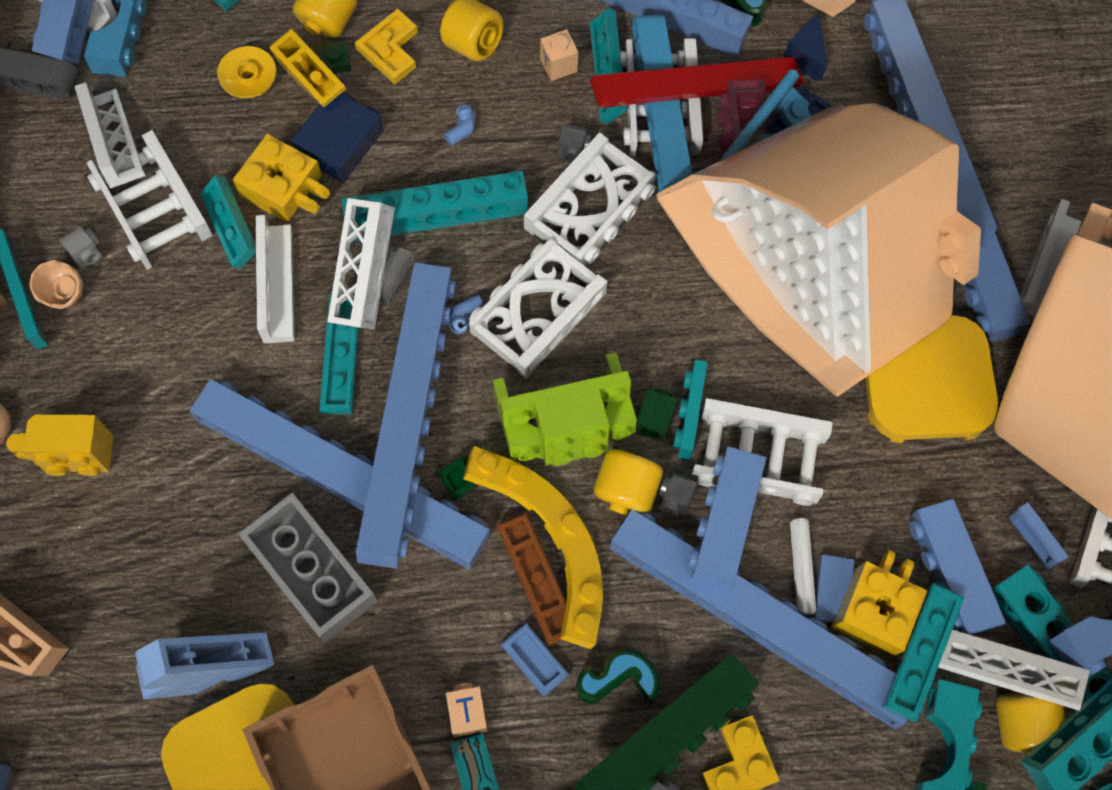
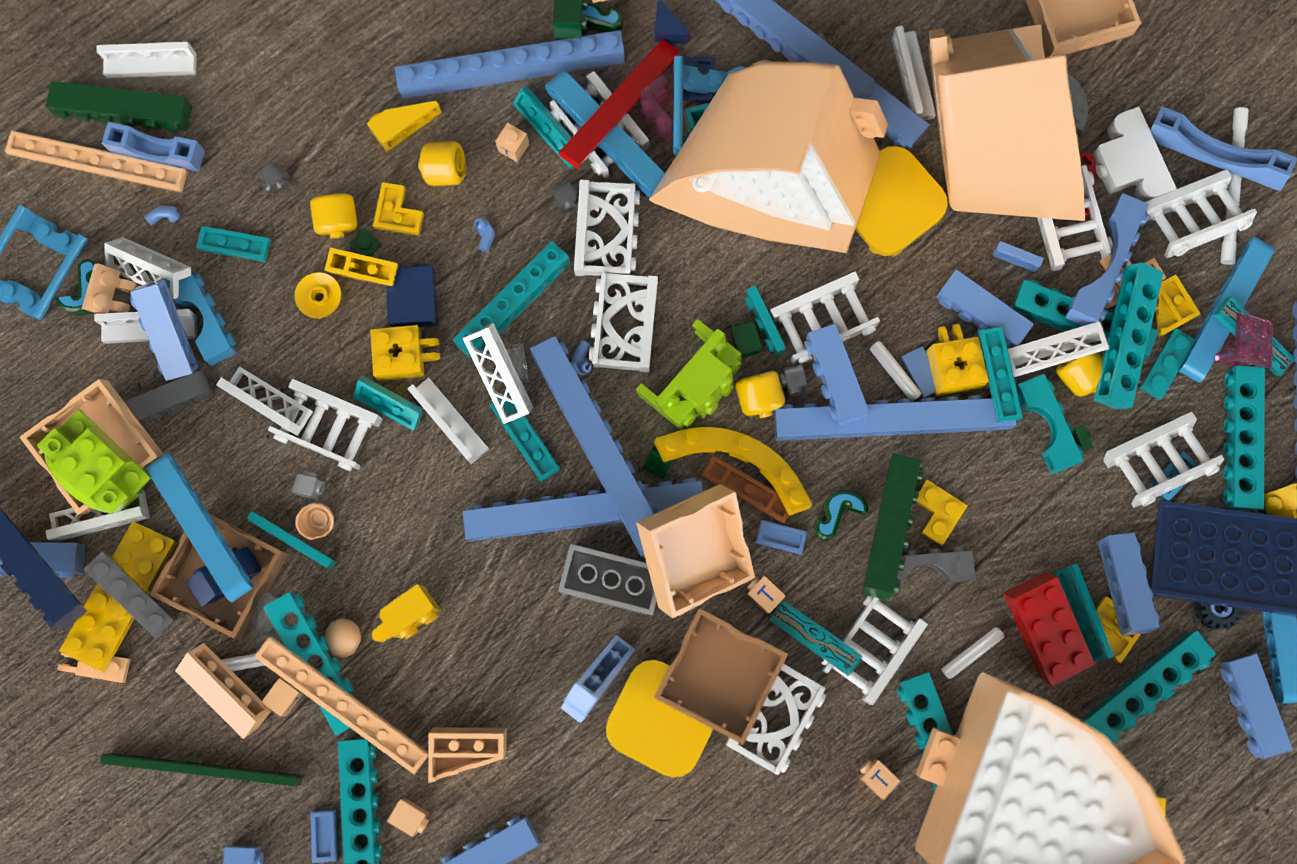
camera: 30 degrees left, 10 degrees up
(419, 595) = (695, 550): none -> light nougat tile

